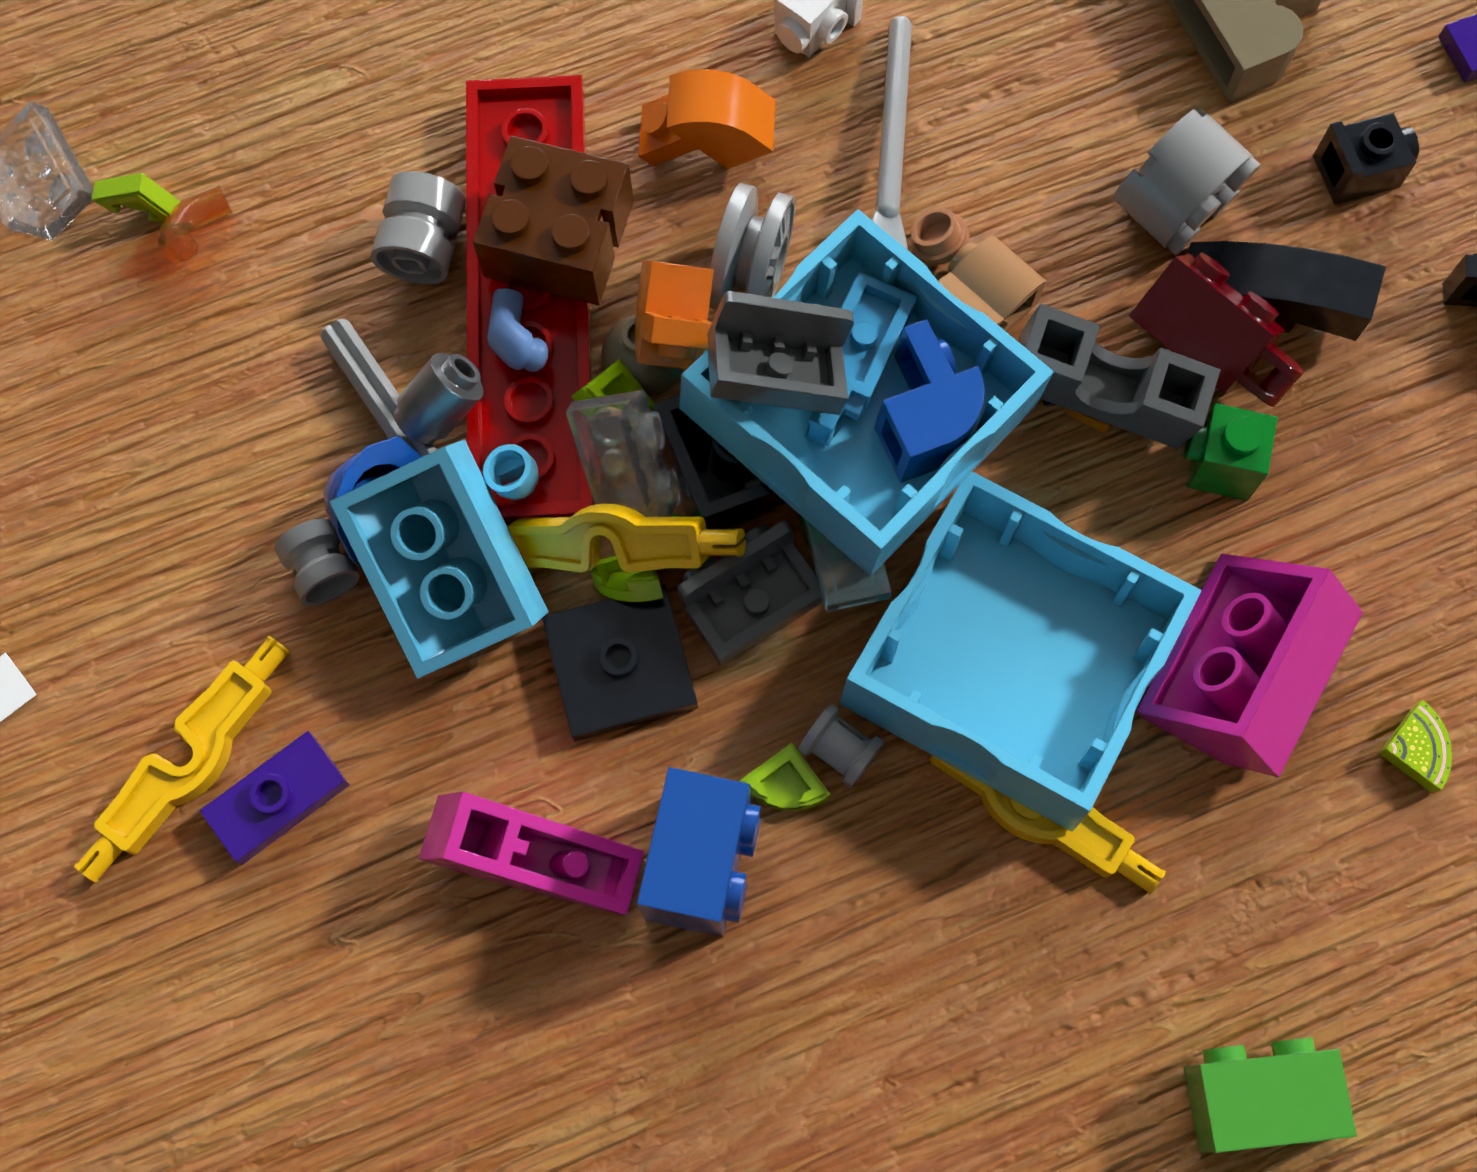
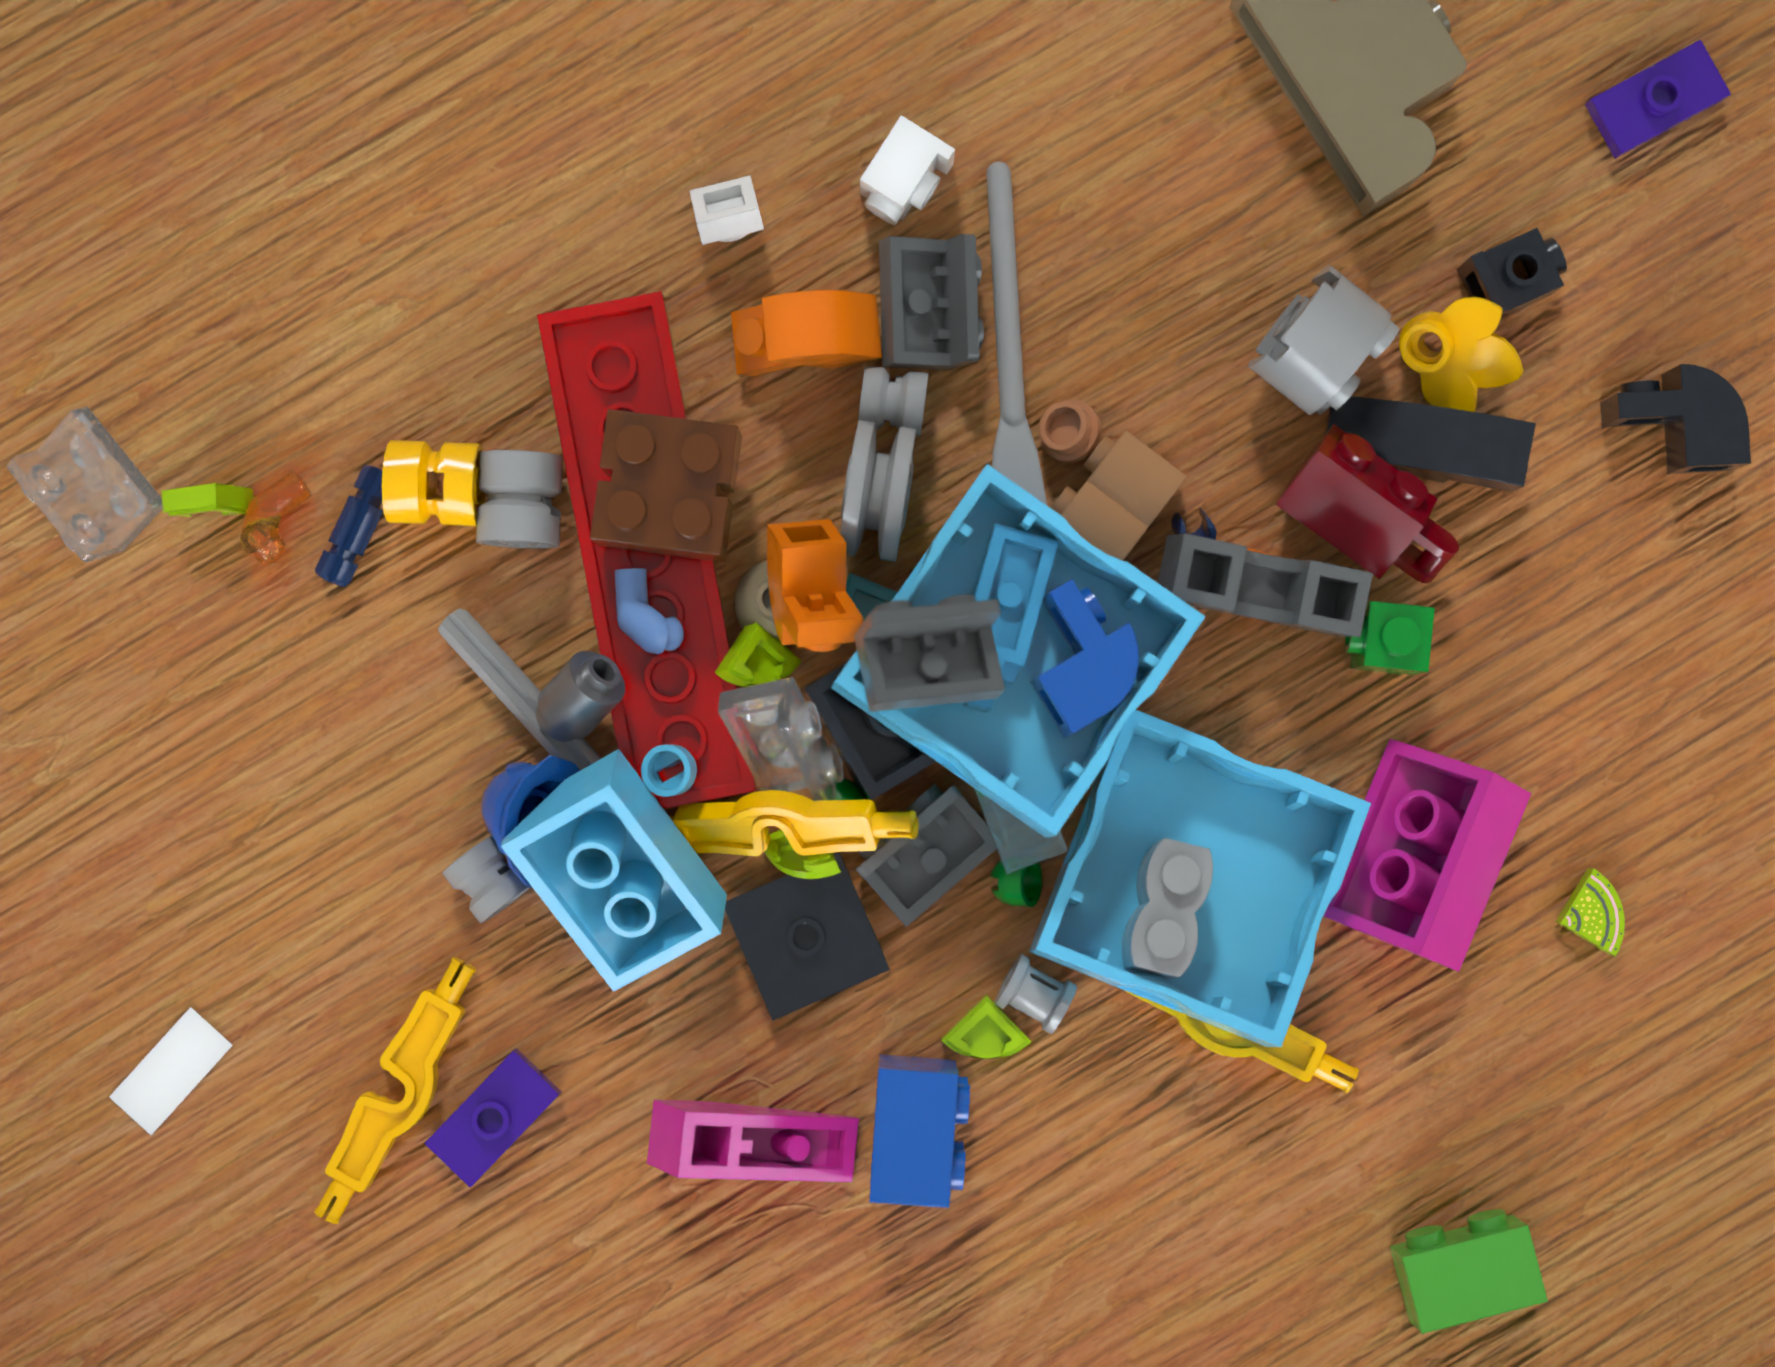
camera: 10 degrees left, 15 degrees up
(265, 240) = (353, 529): none -> dark blue axle
(337, 204) = (411, 483): none -> yellow wheel
(652, 23) = (726, 210): none -> white plate
(772, 180) = (896, 401): none -> light grey wheel
(823, 115) = (930, 302): none -> dark grey bracket
(838, 635) = (1020, 887): none -> green hinge
(986, 662) = (1169, 891): none -> light grey brick
(1324, 210) = (1469, 353): none -> yellow plate

